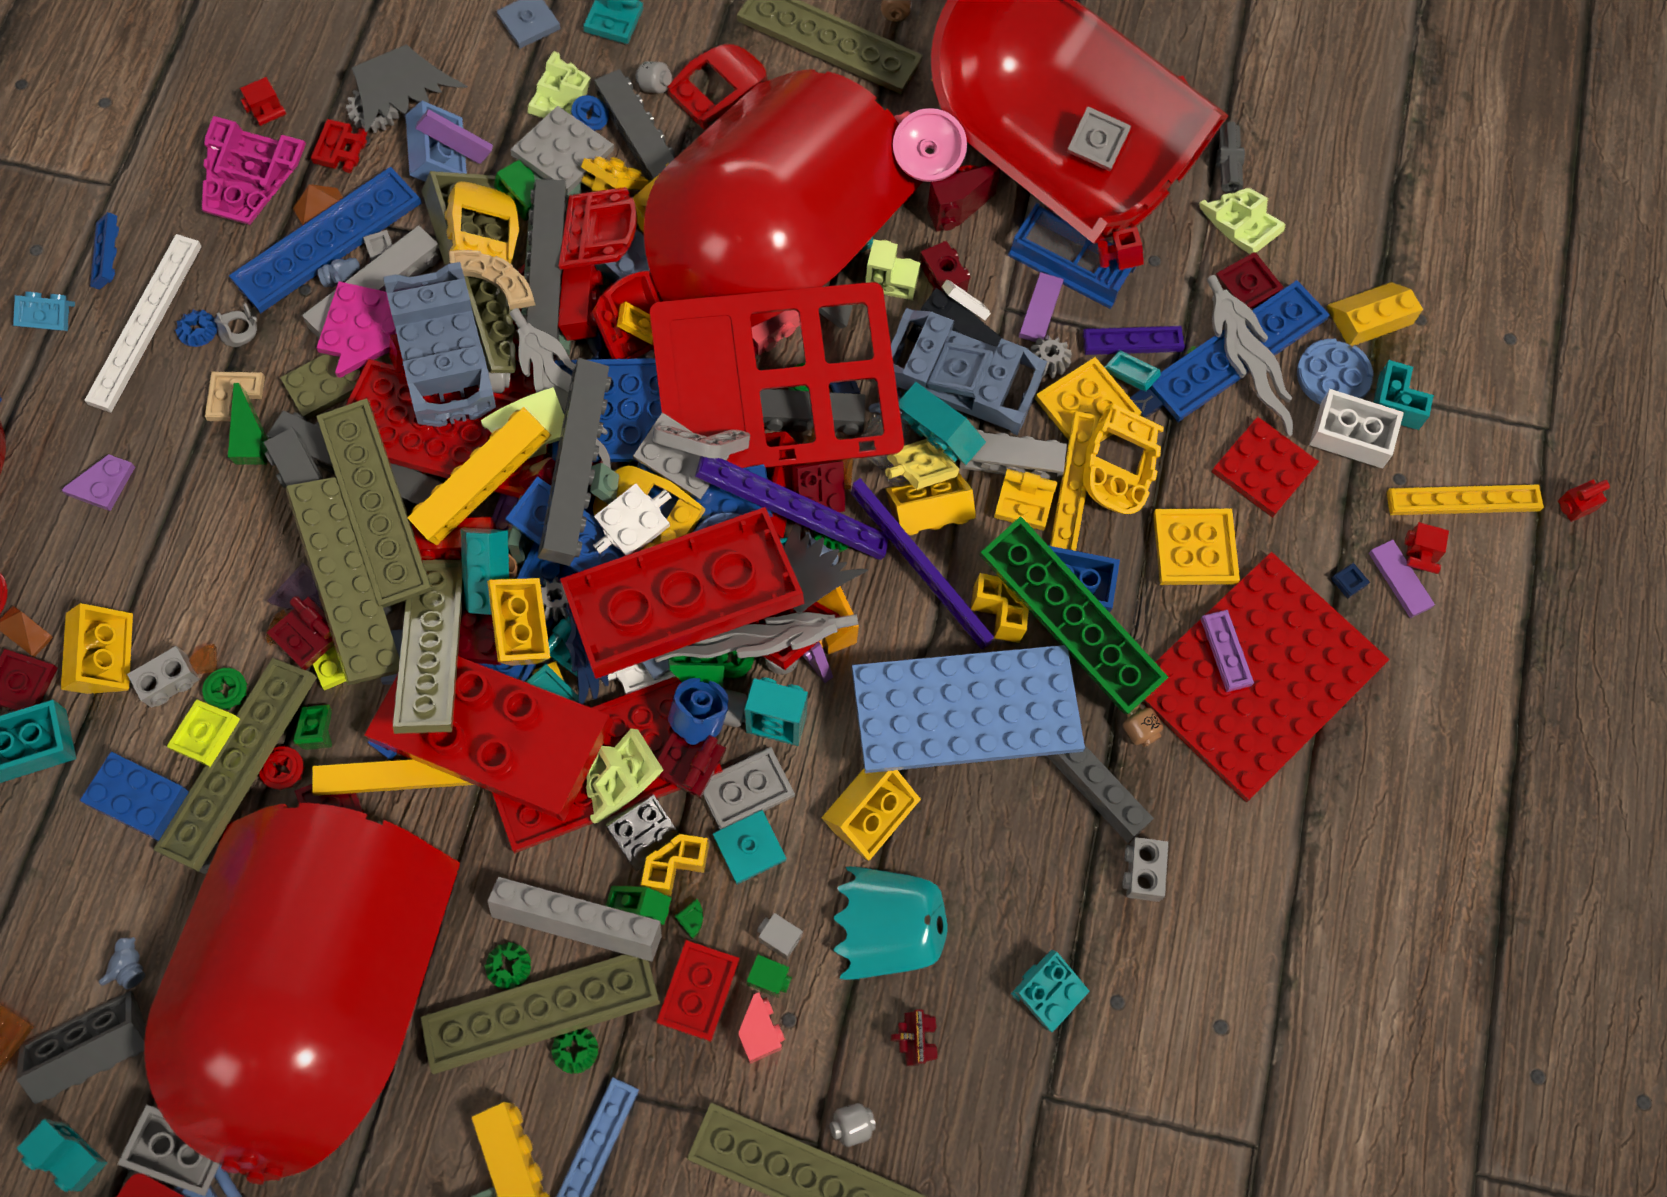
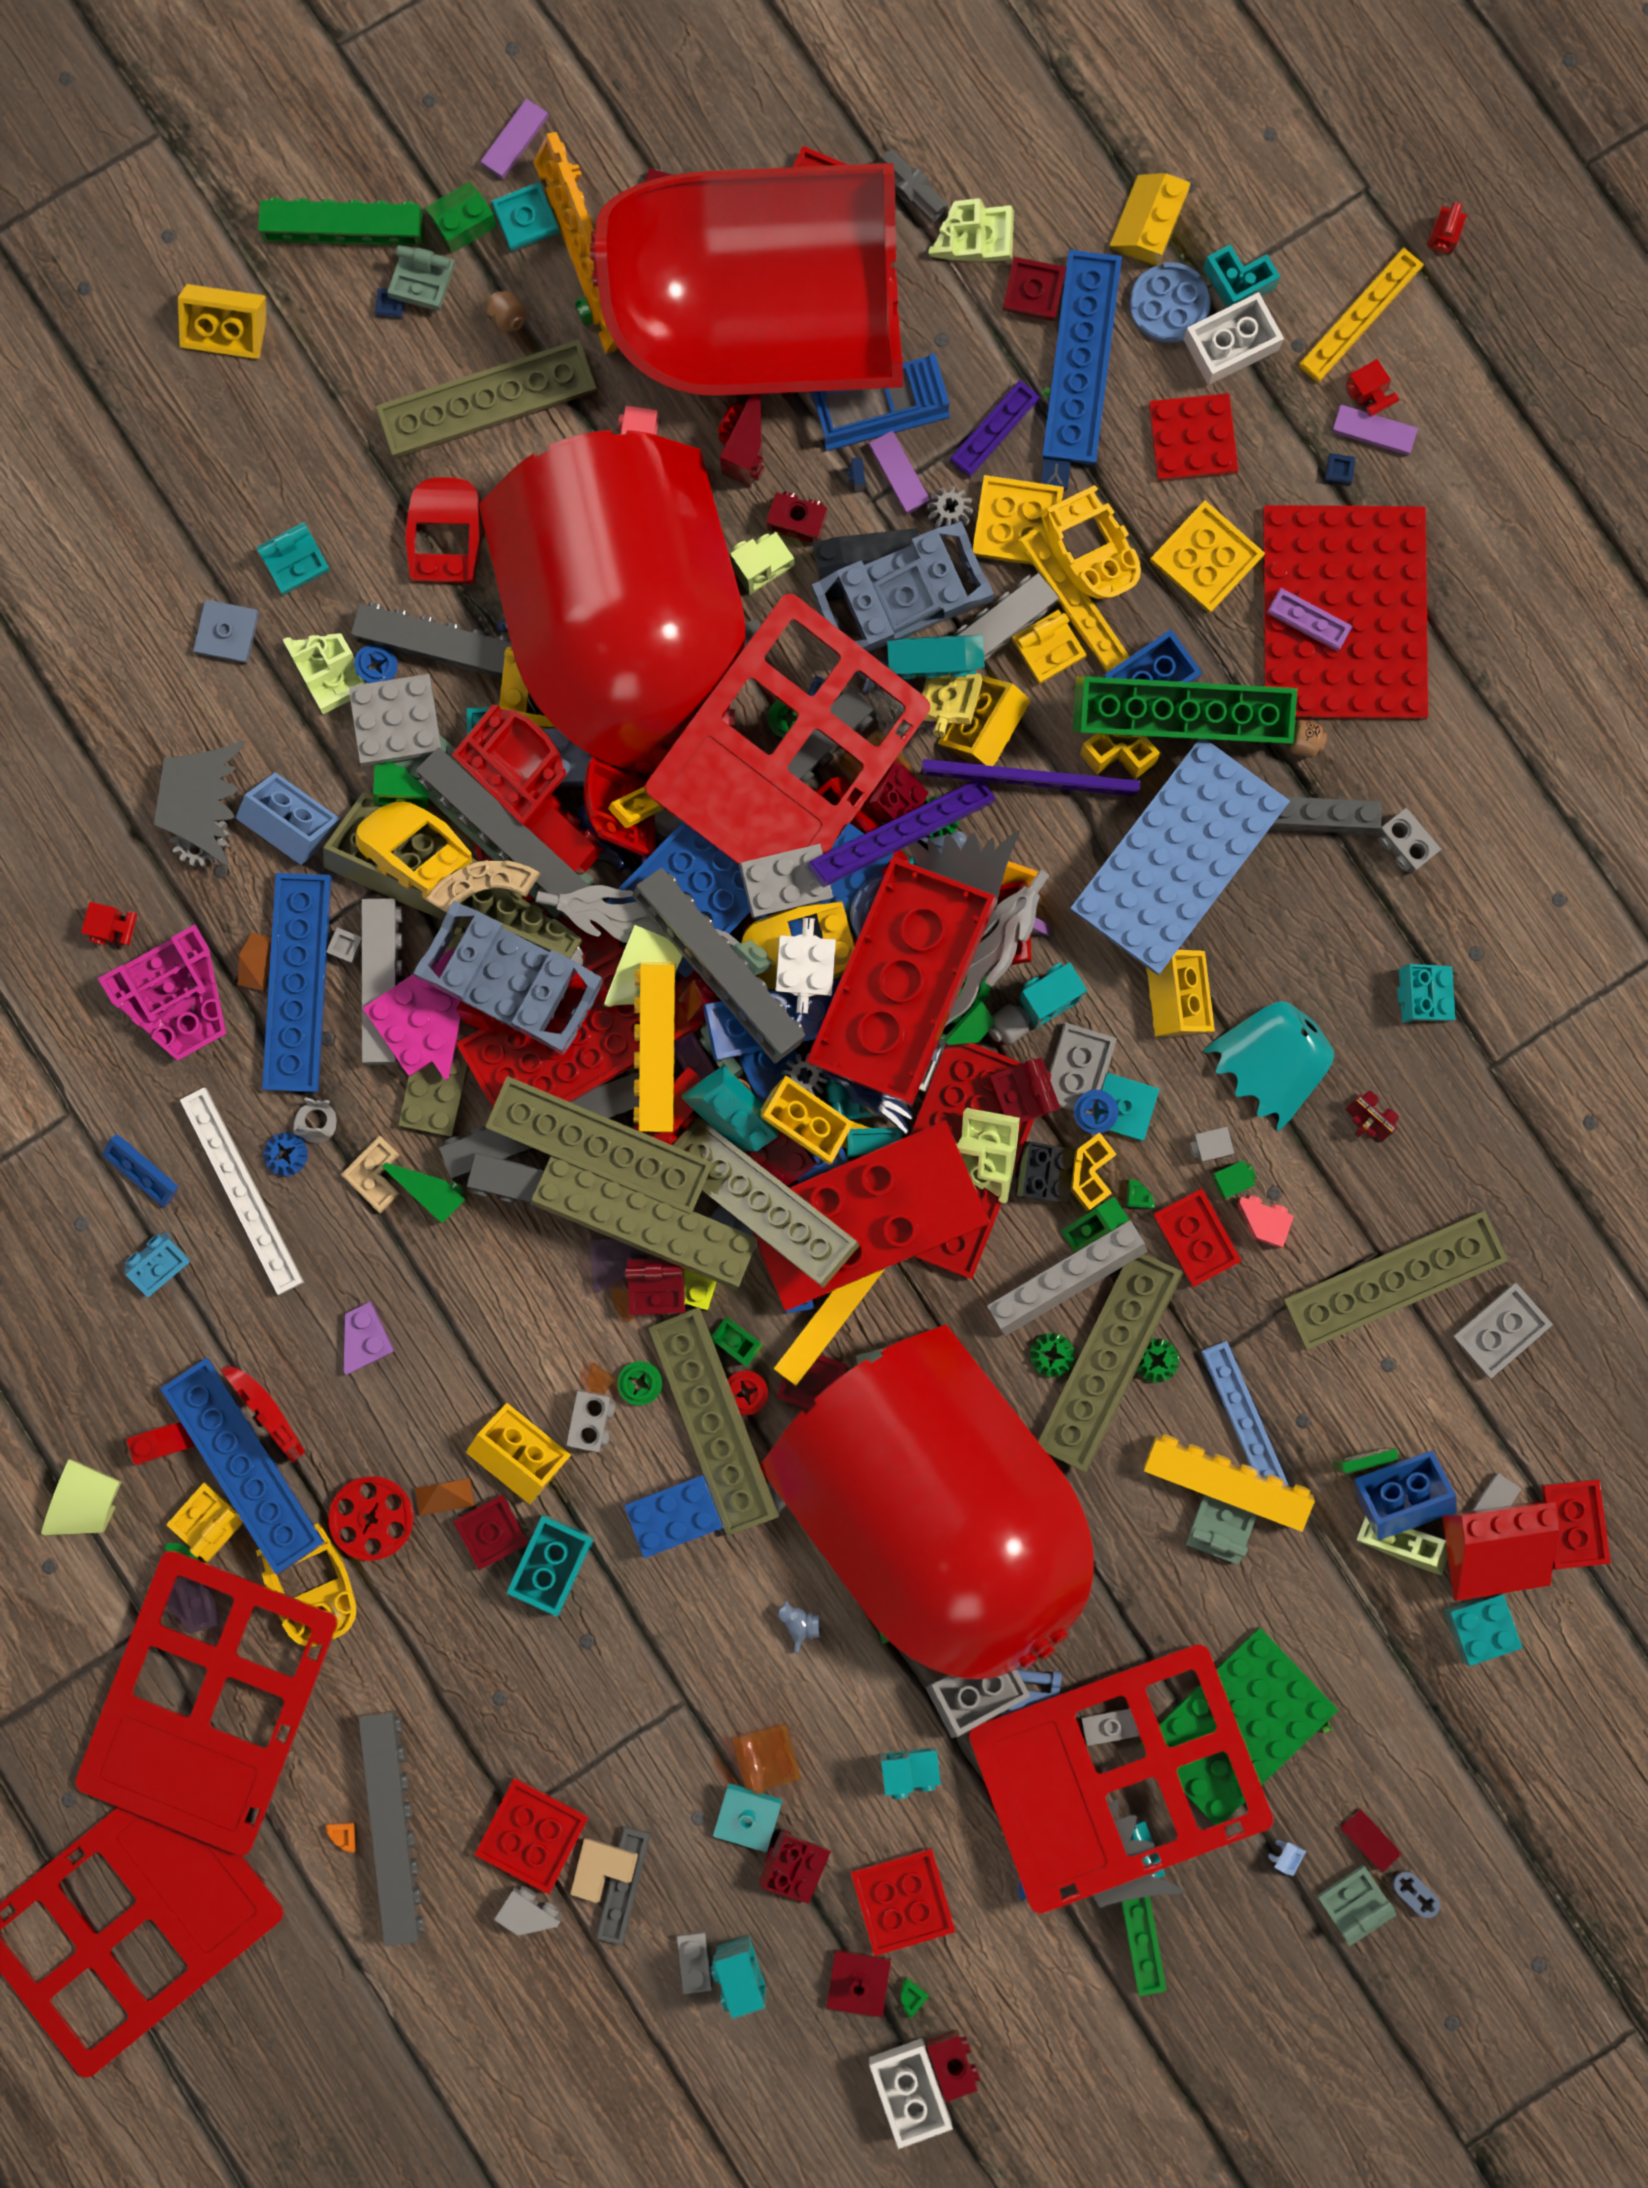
camera: 40 degrees left, 15 degrees up
(81, 1048) = (836, 1699): dark grey slope -> none
(203, 733) = (666, 1427): neon yellow plate -> none
(332, 143) = (204, 901): red plate -> none
(337, 271) = (340, 999): sand blue animal -> none
(454, 136) = (303, 798): medium lavender tile -> none
(611, 175) = (461, 703): yellow plate -> none
(653, 77) = (390, 581): light grey head -> none
(698, 710) = (998, 1051): blue brick -> none
(710, 447) = (813, 856): light grey beam -> none
(723, 813) = (1106, 1120): none -> blue gear
(852, 1124) = (1389, 1216): light grey head -> none
(932, 130) = (706, 414): bright pink dish -> none
(966, 299) = (843, 528): white tile -> none
(1011, 282) = (856, 475): none -> dark blue plate
(1098, 138) = (799, 277): light grey plate -> none
(1125, 249) = (926, 363): red brick -> none
(1133, 371) = (1022, 458): teal tile -> none
(1240, 343) = (1079, 351): light grey piece -> none

